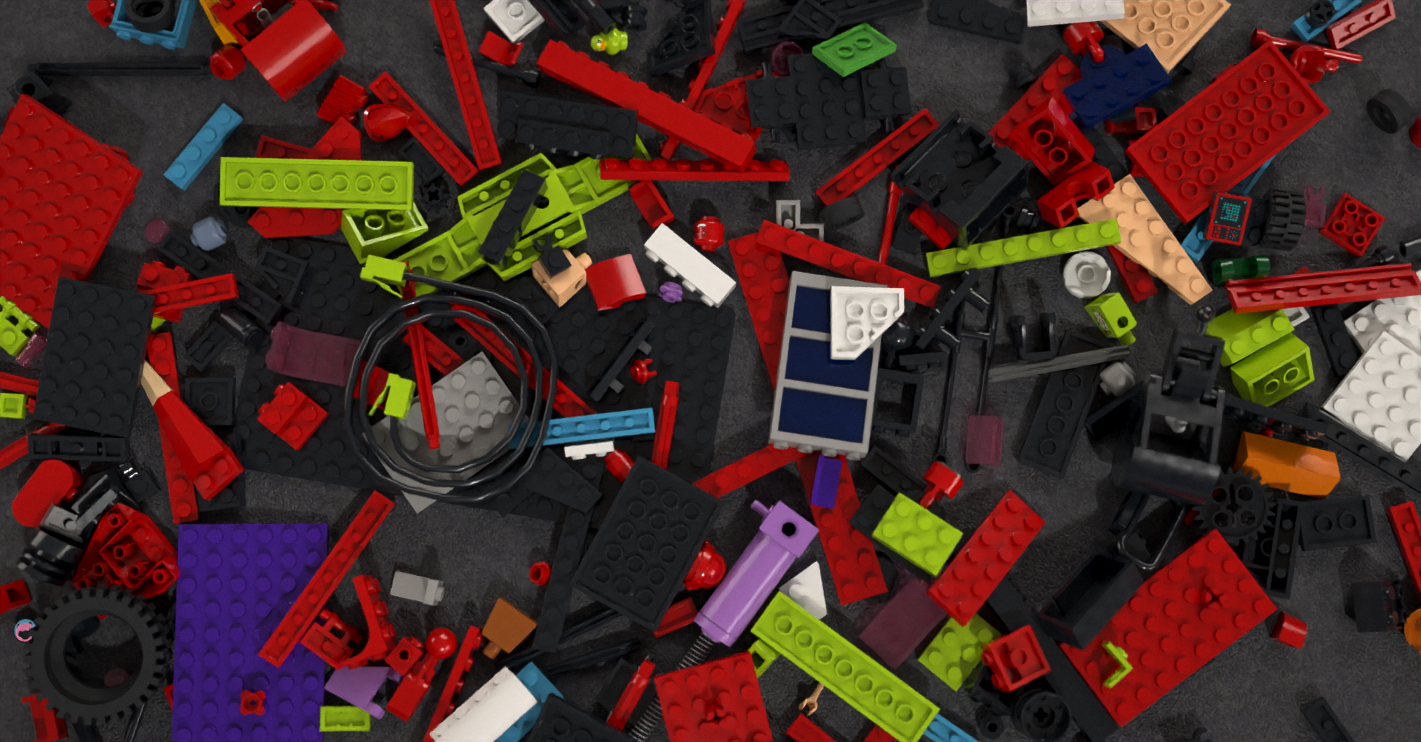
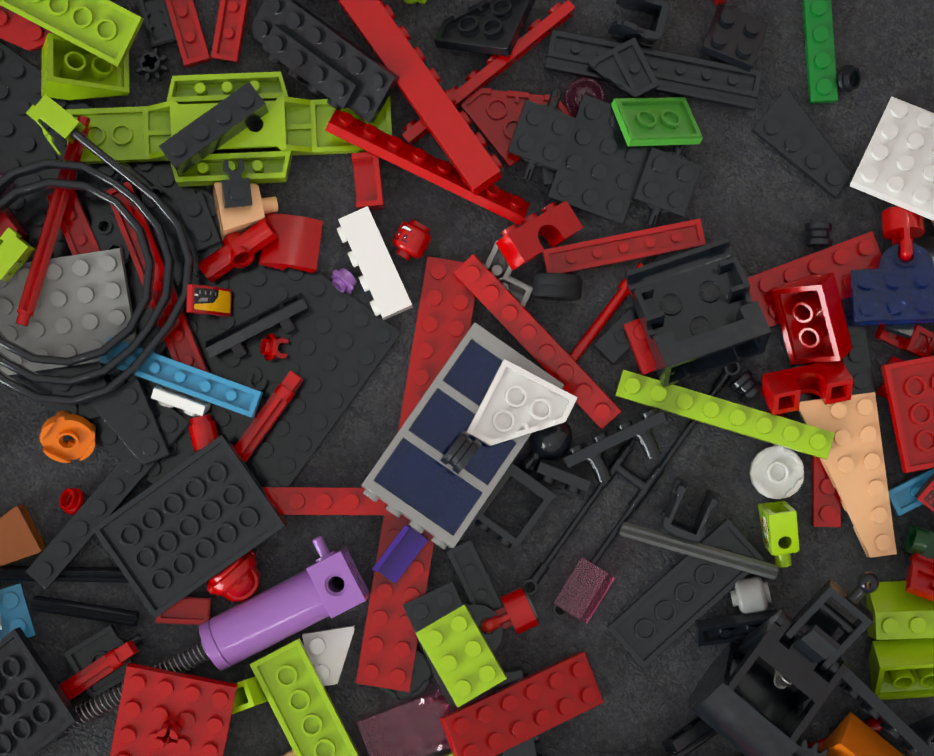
camera: 25 degrees right, 5 degrees up
(504, 514) = (68, 424): none -> orange plate
(574, 357) = (209, 300): none -> slope
(576, 307) = (238, 250): none -> red piece
(799, 191) = (522, 243): none -> red arch
(835, 373) = (460, 452): none -> black wheel

